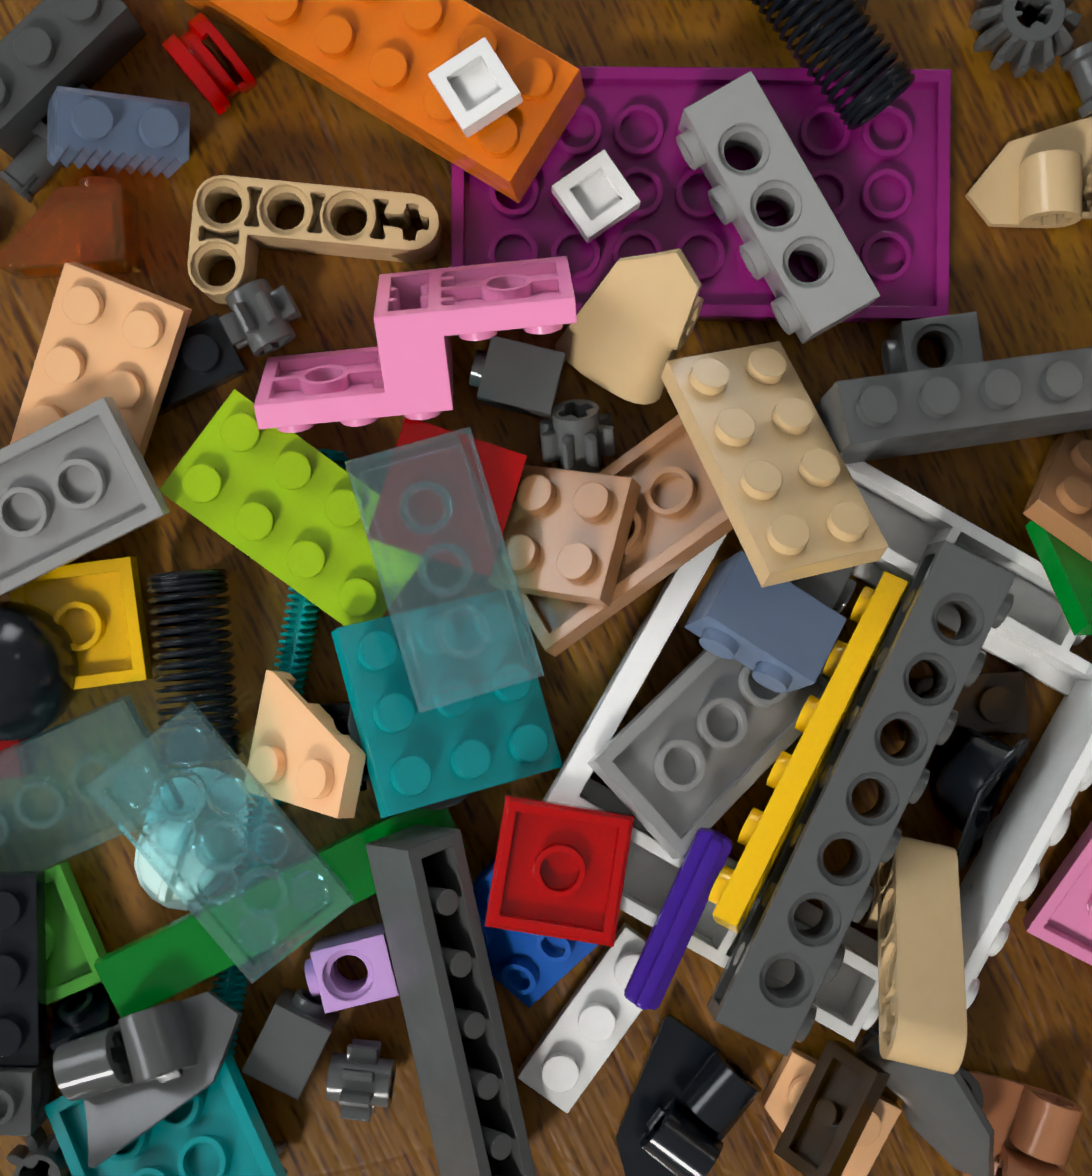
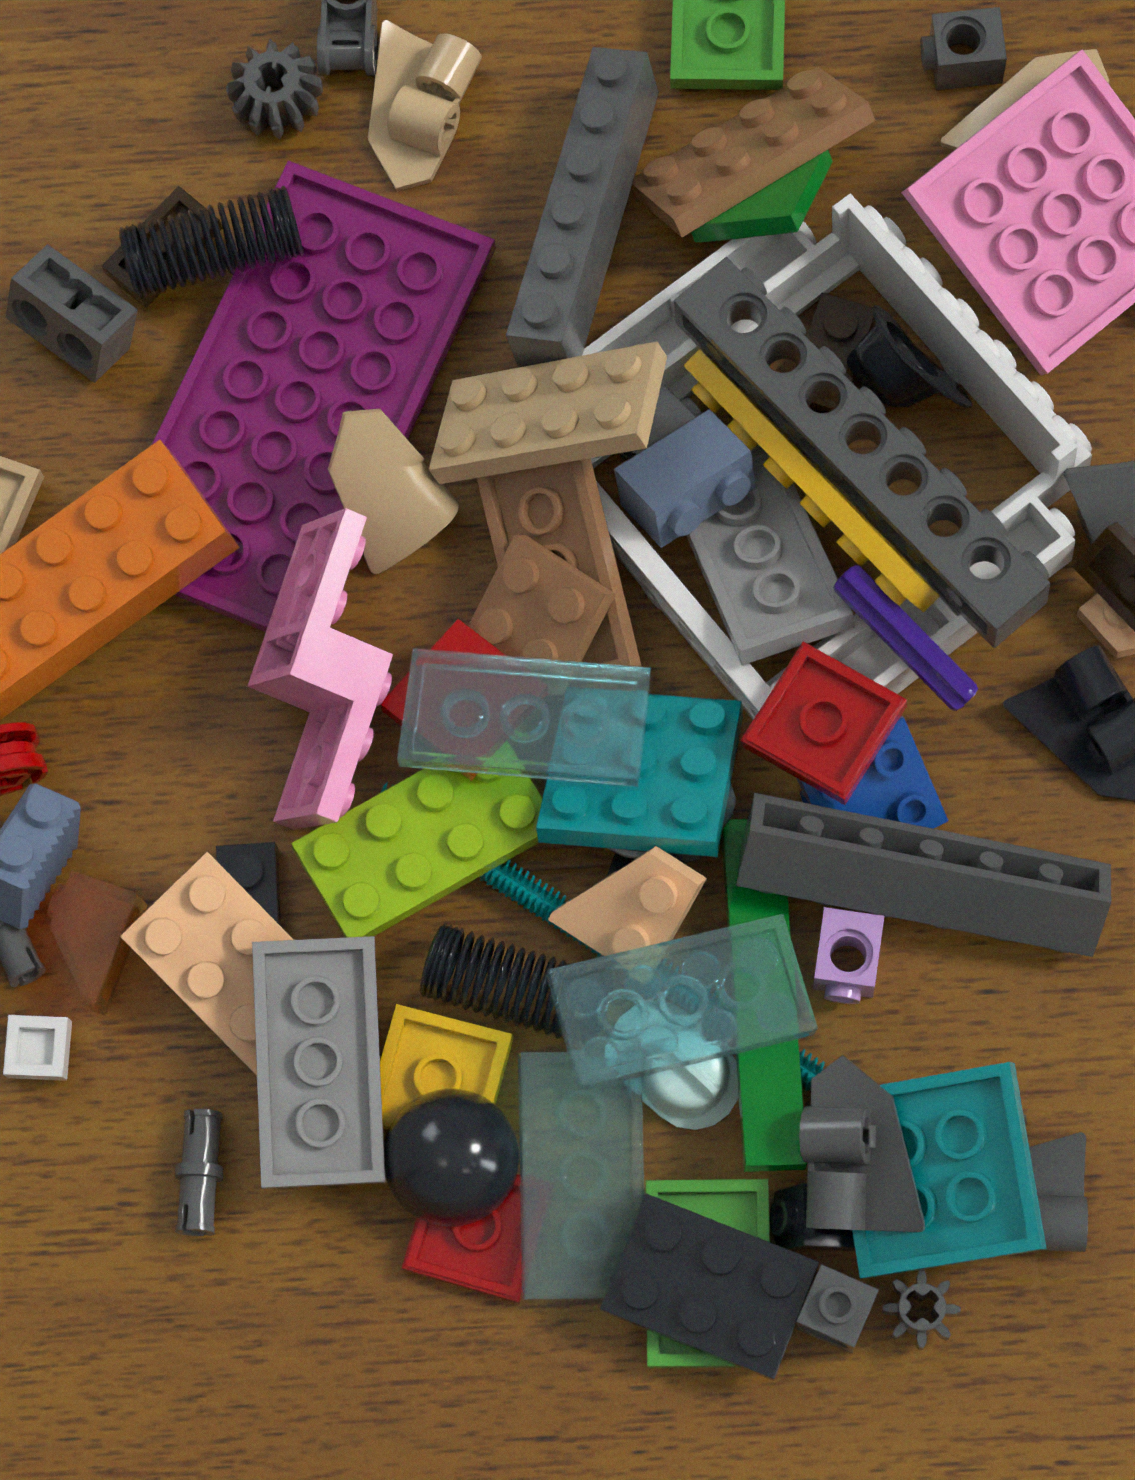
camera: 55 degrees left, 15 degrees down
(260, 317) = (237, 805): dark grey gear -> none
(291, 1042) = (892, 1036): dark grey brick -> none
(315, 234) = (188, 728): tan beam -> none
(360, 1080) = (952, 988): dark grey gear -> none
(476, 87) = (140, 520): white plate -> none
(517, 377) = (388, 607): dark grey brick -> none
(577, 436) = (459, 577): dark grey gear -> none
(586, 1025) = (983, 771): white plate -> none
(595, 196) = (264, 479): white plate -> none
(744, 118) = (314, 323): light grey brick -> none
(920, 956) = (1008, 447): tan beam -> none
(954, 334) = (509, 241): dark grey brick -> none

